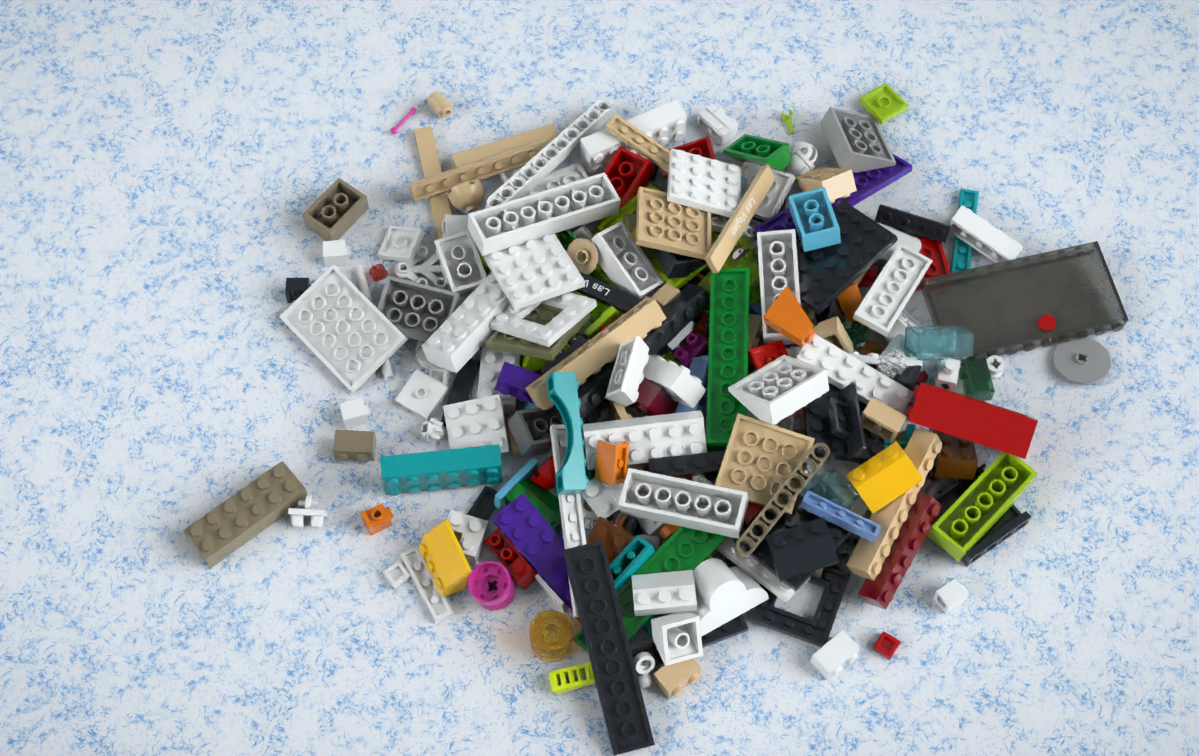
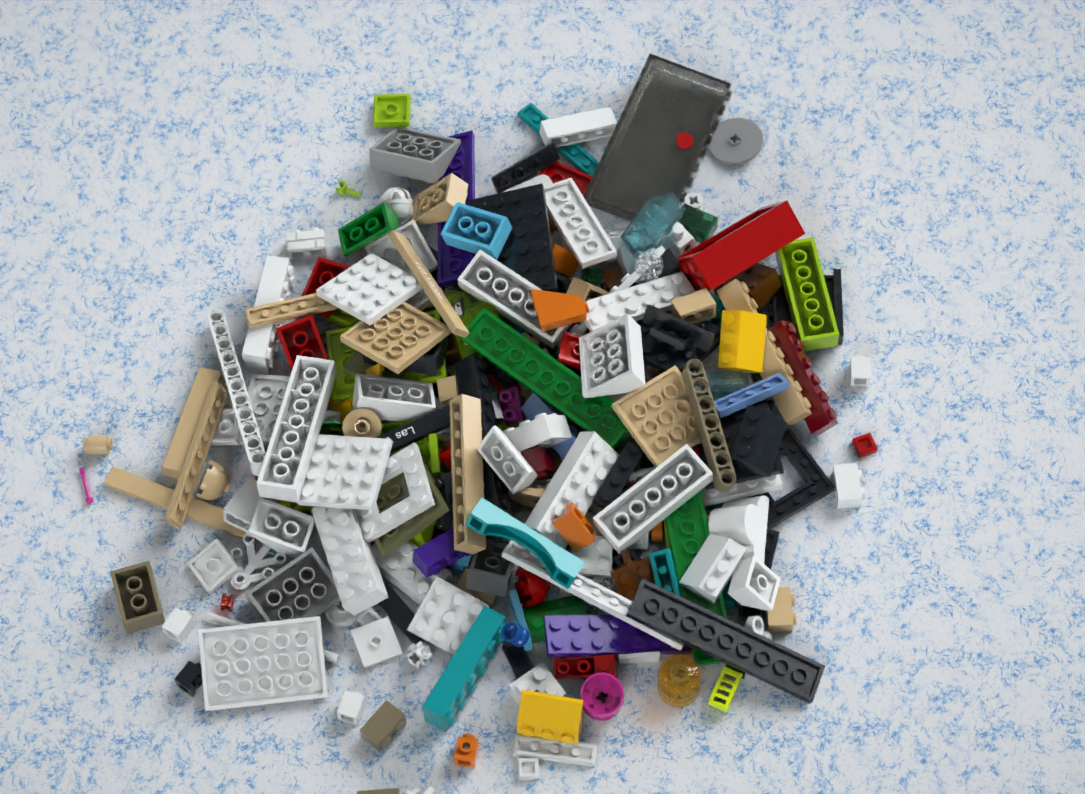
camera: 50 degrees left, 0 degrees up
(494, 485) = (515, 634): none -> blue wheel

